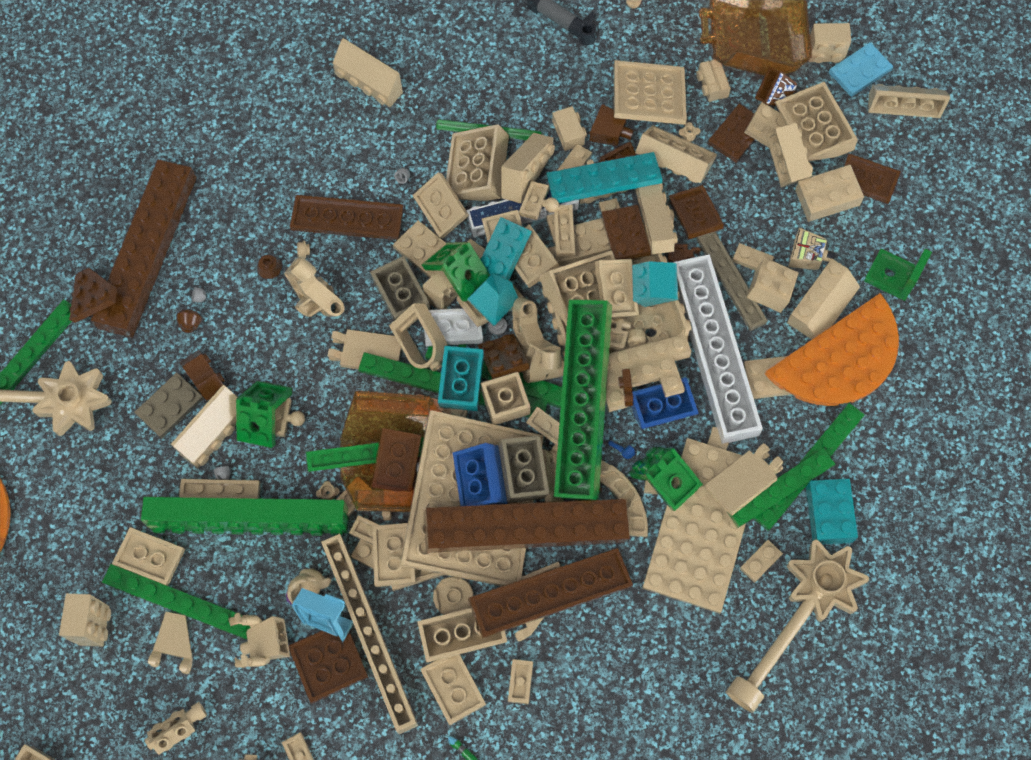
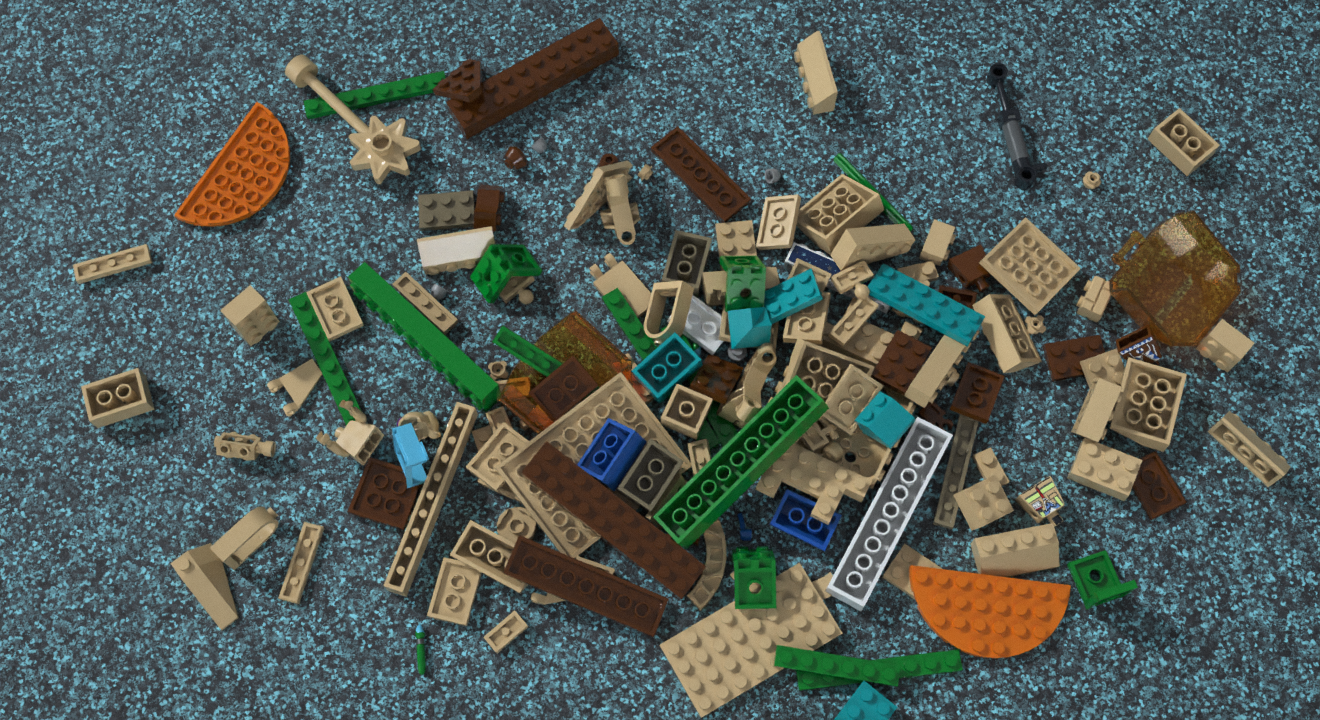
camera: 40 degrees right, 0 degrees up
(282, 294) = (595, 193): none -> tan wing
(625, 383) = (784, 478): reddish brown plate -> none
(744, 479) = (811, 633): tan tile -> none
(761, 561) = (770, 708): tan plate -> none
(860, 69) = (1235, 390): medium azure plate -> none

